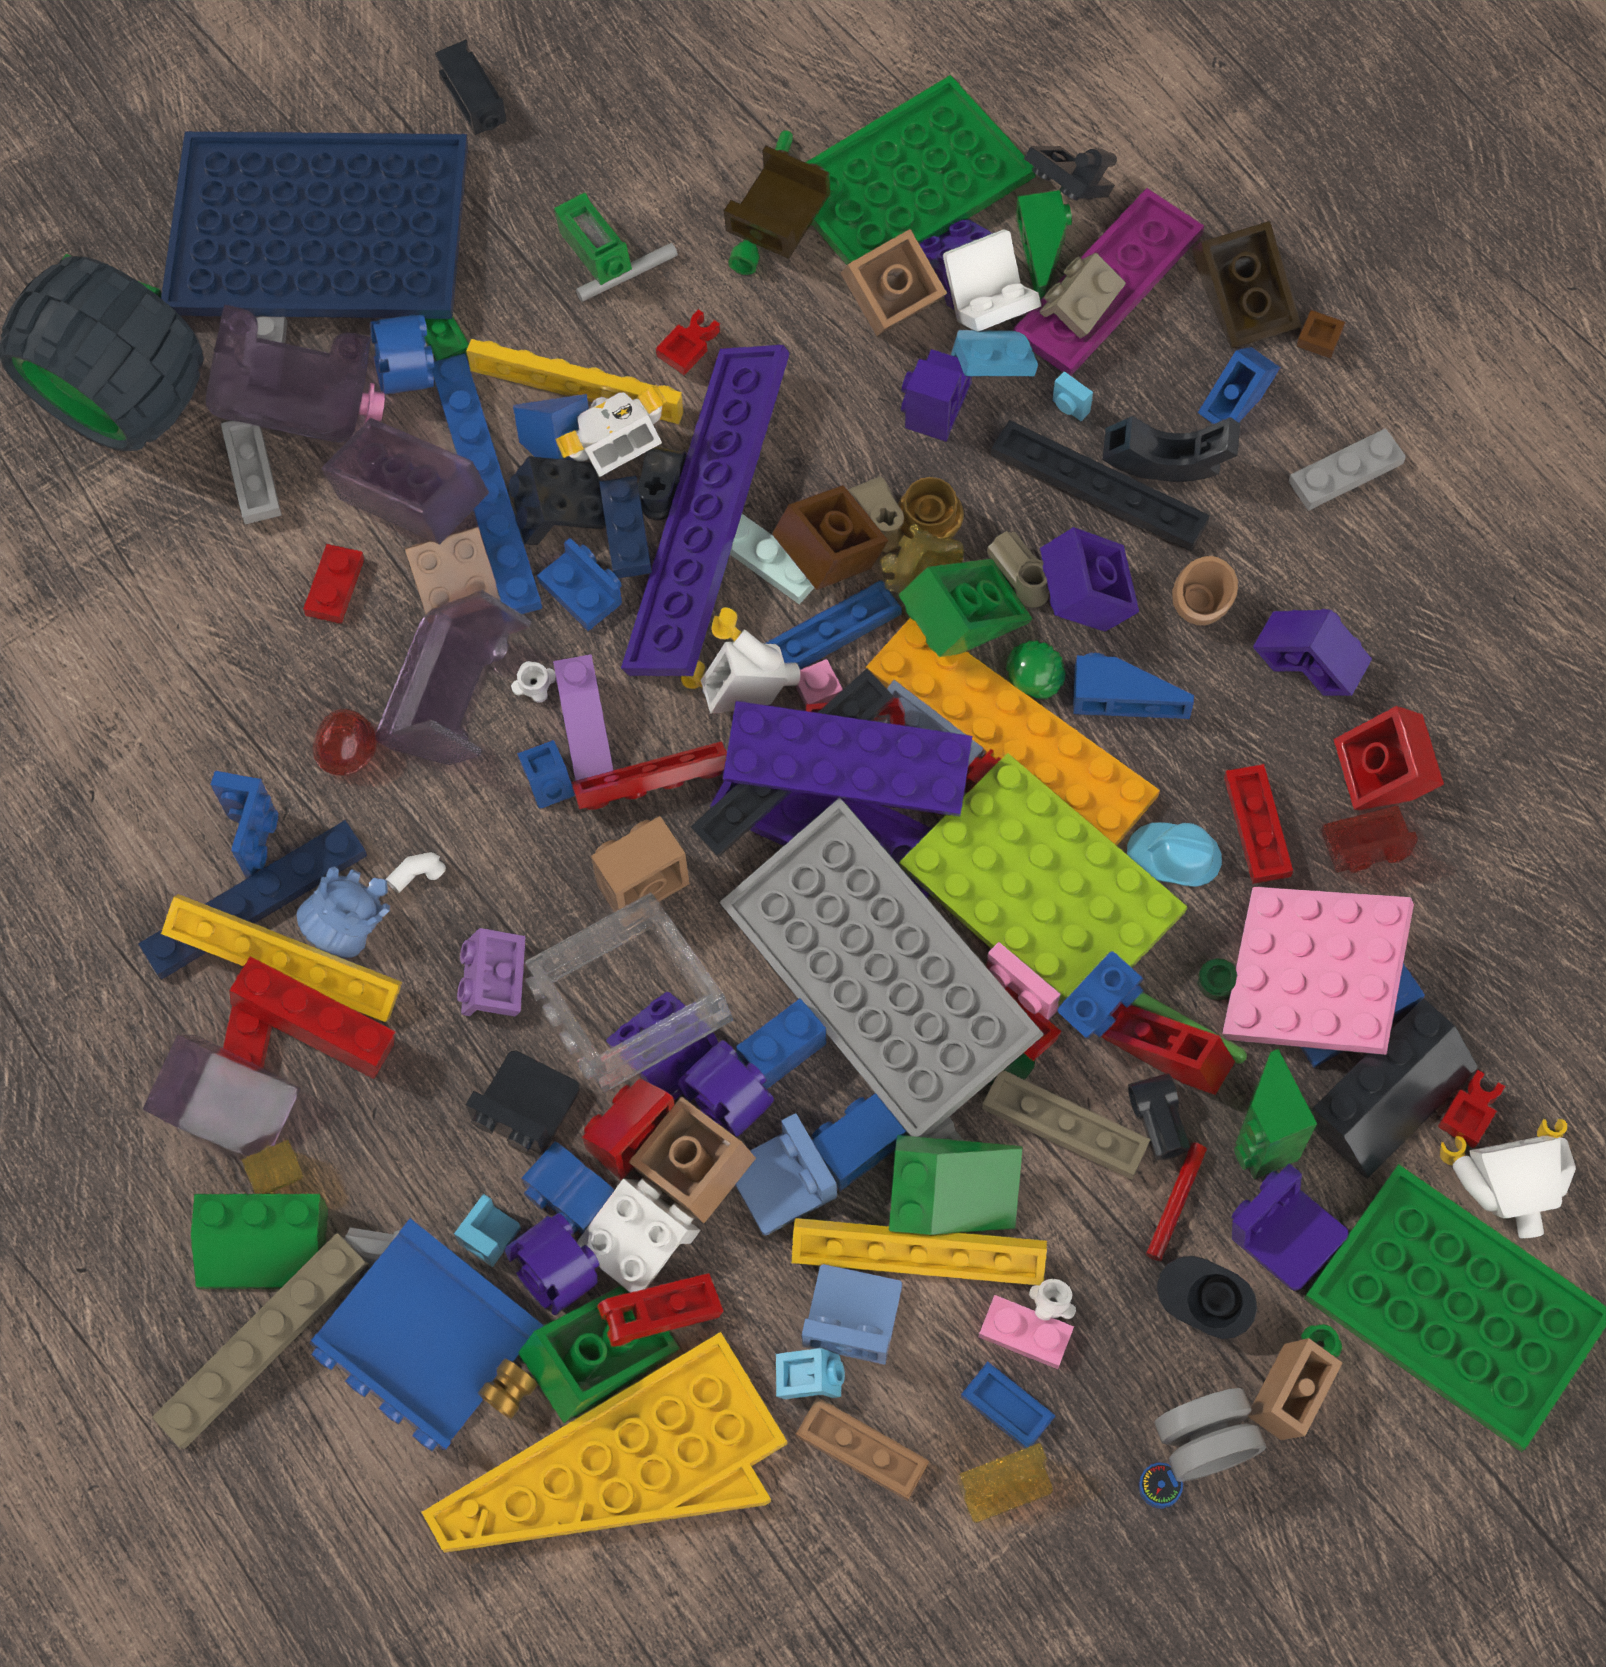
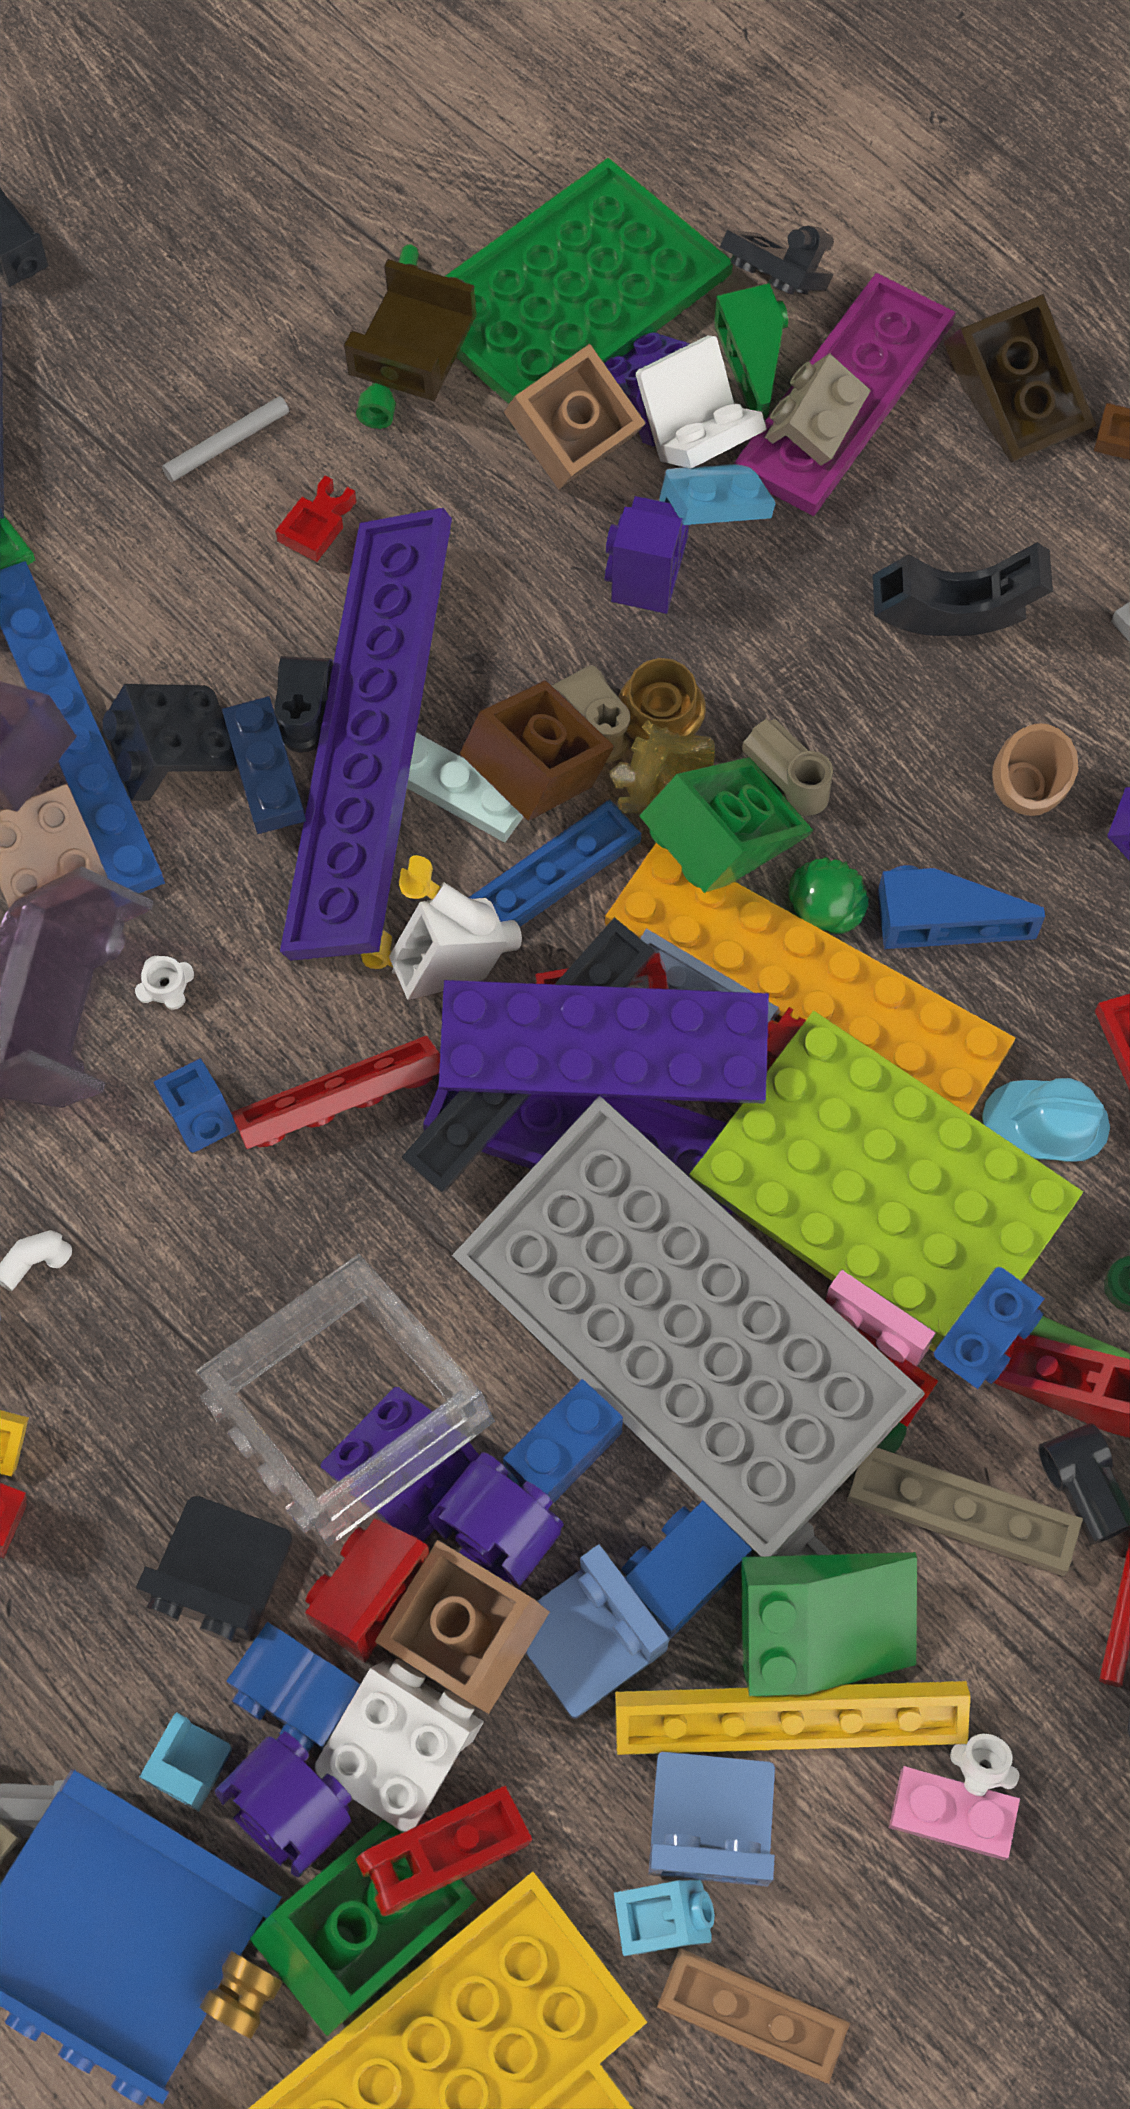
camera: 10 degrees left, 0 degrees up
(492, 973) = (152, 1390): medium lavender bracket -> none
(546, 420) = (154, 643): blue slope -> none
(562, 377) = (174, 582): yellow plate -> none
(582, 585) = (214, 847): blue bracket -> none
(583, 716) = (237, 1022): medium lavender slope -> none
(592, 239) = (176, 399): green window -> none
(615, 430) = (236, 639): white torso -> none
(640, 864) = (339, 1216): medium nougat brick -> none
(818, 683) = (546, 945): bright pink plate -> none
(1005, 1483) = (963, 2046): clear yellow bracket -> none
(1007, 1406) = (945, 1925): blue tile -> none
(1072, 396) = (822, 539): medium azure plate -> none
(1089, 579) = (883, 770): dark purple brick -> none
(1100, 485) = (875, 649): black plate -> none
(1239, 386) = (1032, 506): blue slope -> none

